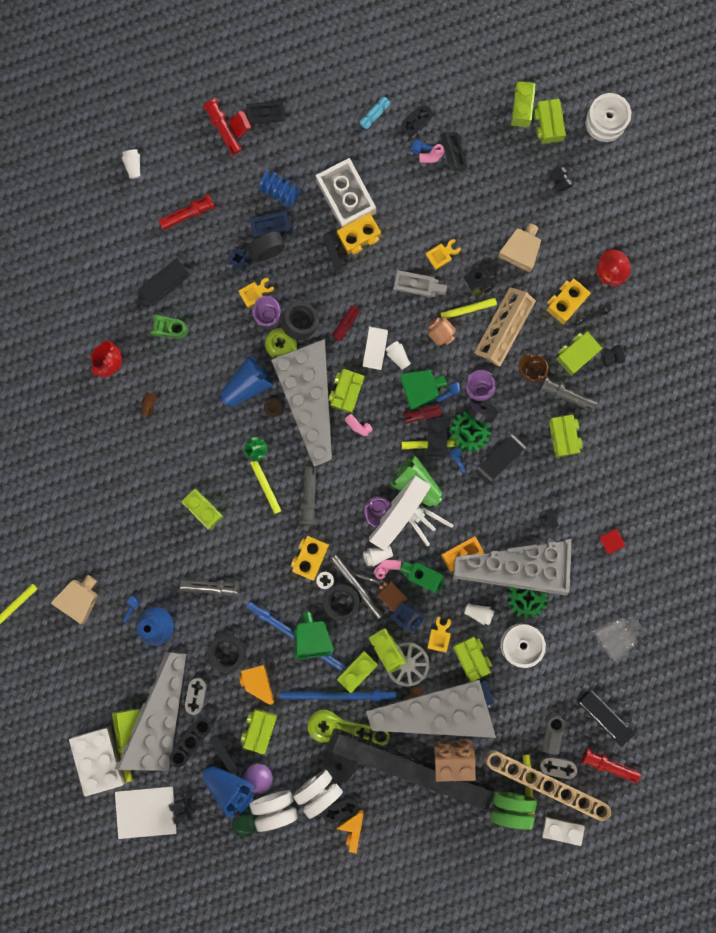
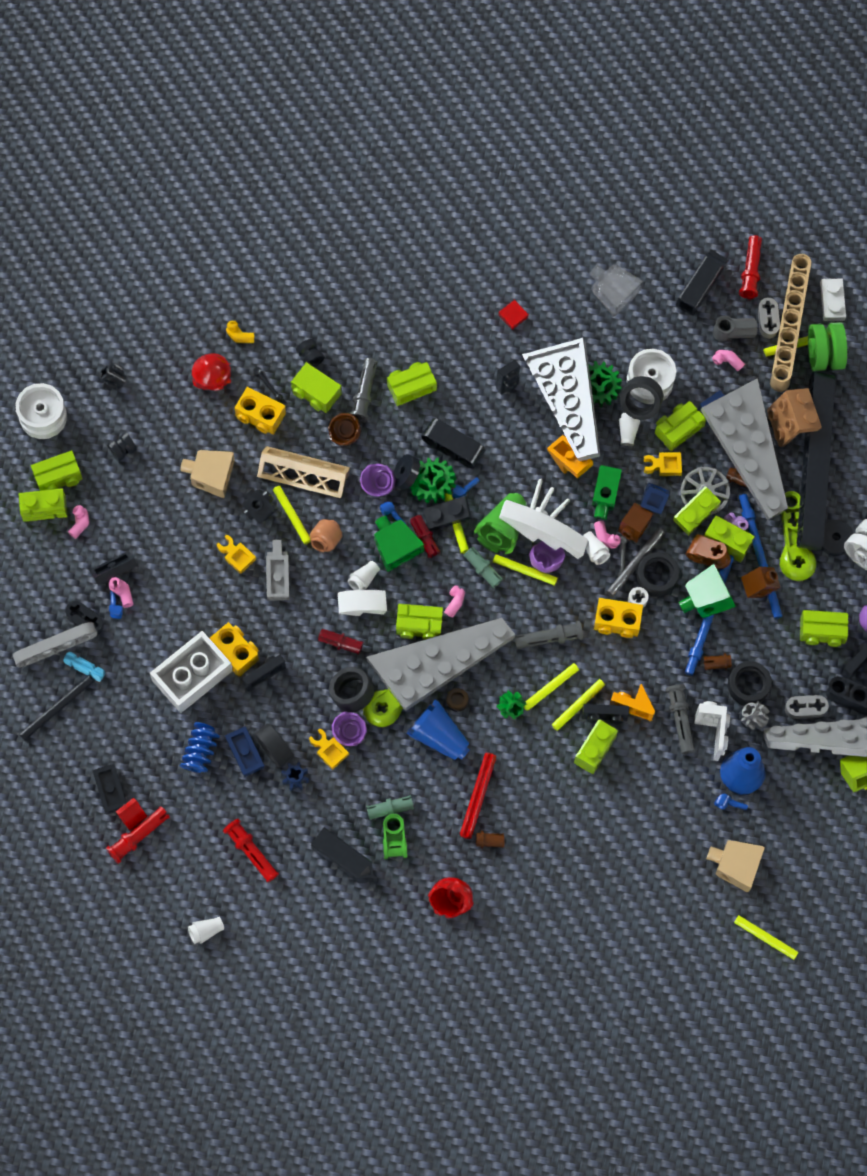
camera: 110 degrees left, 15 degrees down
(187, 404) = (478, 796): none -> red axle
(195, 330) = (390, 807): none -> sand green pin
(196, 649) = (755, 715): none -> light grey gear
(203, 611) = (713, 715): none -> white bracket
(227, 532) = (614, 713): none -> black plate
(229, 555) = (639, 706): none -> light orange slope
(244, 505) = (574, 708): none -> neon yellow bar
(252, 631) = (717, 662): none -> reddish brown pin
(257, 683) = (771, 642): light orange slope -> none
(310, 687) = (760, 582): none -> reddish brown brick
(345, 84) = (54, 709): none -> black bar
(351, 649) = (708, 552): none -> dark orange piece
(372, 683) = (738, 521): none -> lavender arm
(374, 490) = (525, 570): none -> neon yellow bar
(382, 456) = (483, 567): none -> sand green pin
(396, 90) = (54, 644): none -> light grey beam
(502, 135) = (81, 520): none -> bright pink arm
(508, 634) = (648, 384): none -> black tyre
(527, 721) = (728, 356): none -> bright pink arm
(627, 184) = (112, 376): none -> black gear
(644, 299) = (237, 335): none -> yellow arm

